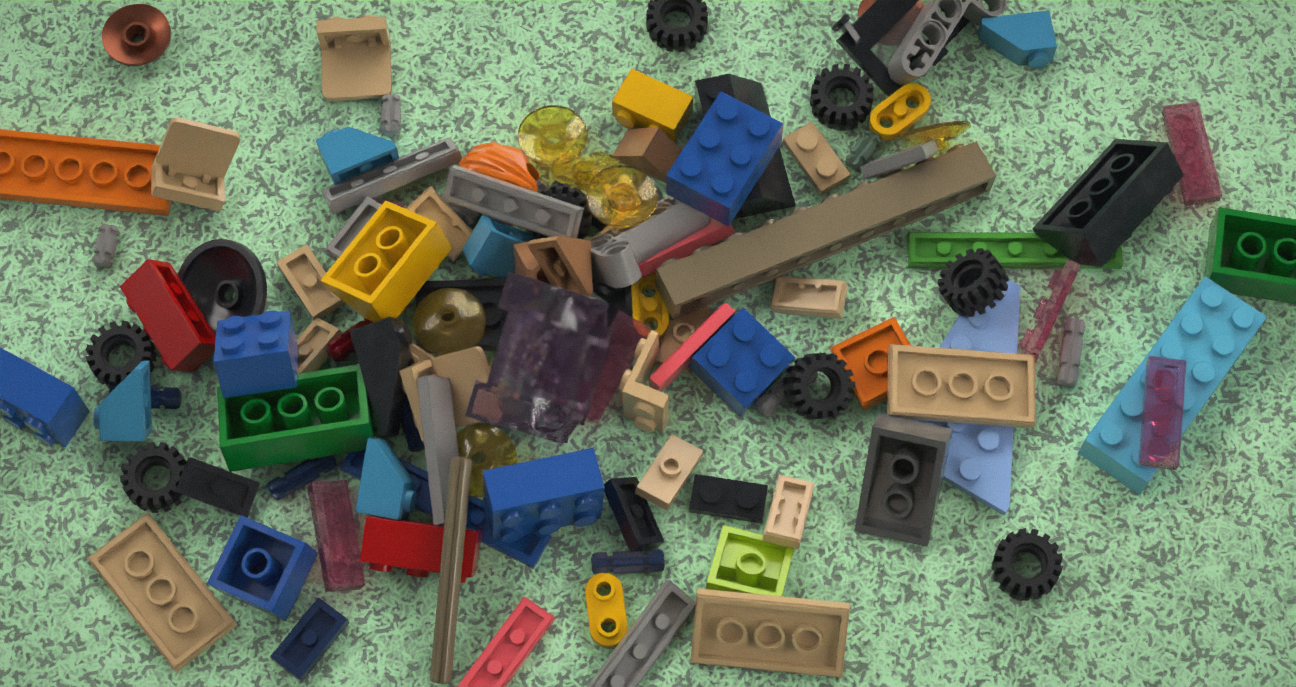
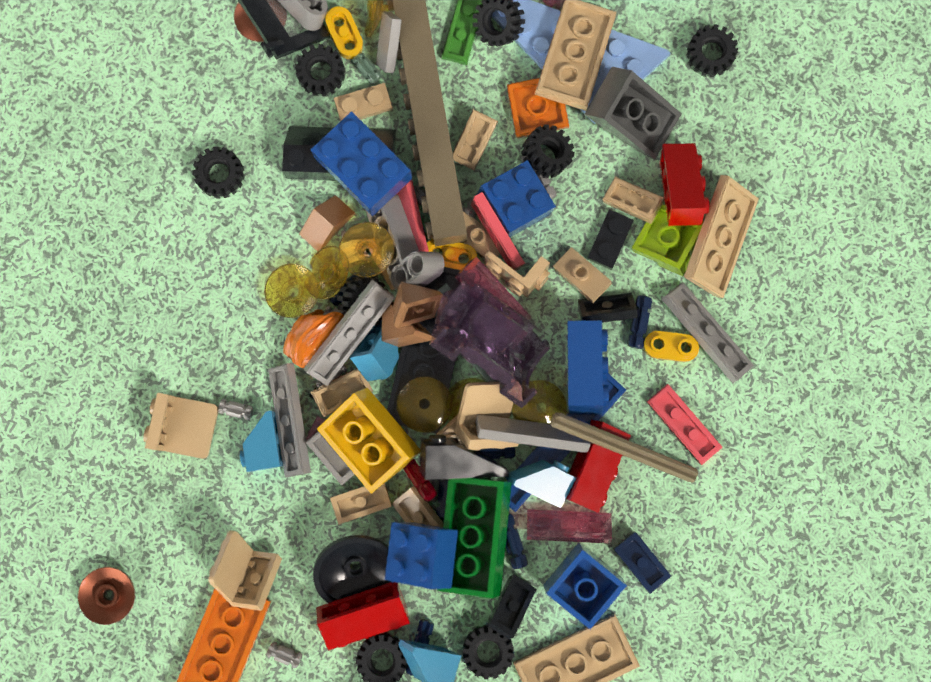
camera: 75 degrees left, 15 degrees up
(651, 104) = (288, 210): yellow brick -> none
(823, 560) = (683, 184): none -> red brick

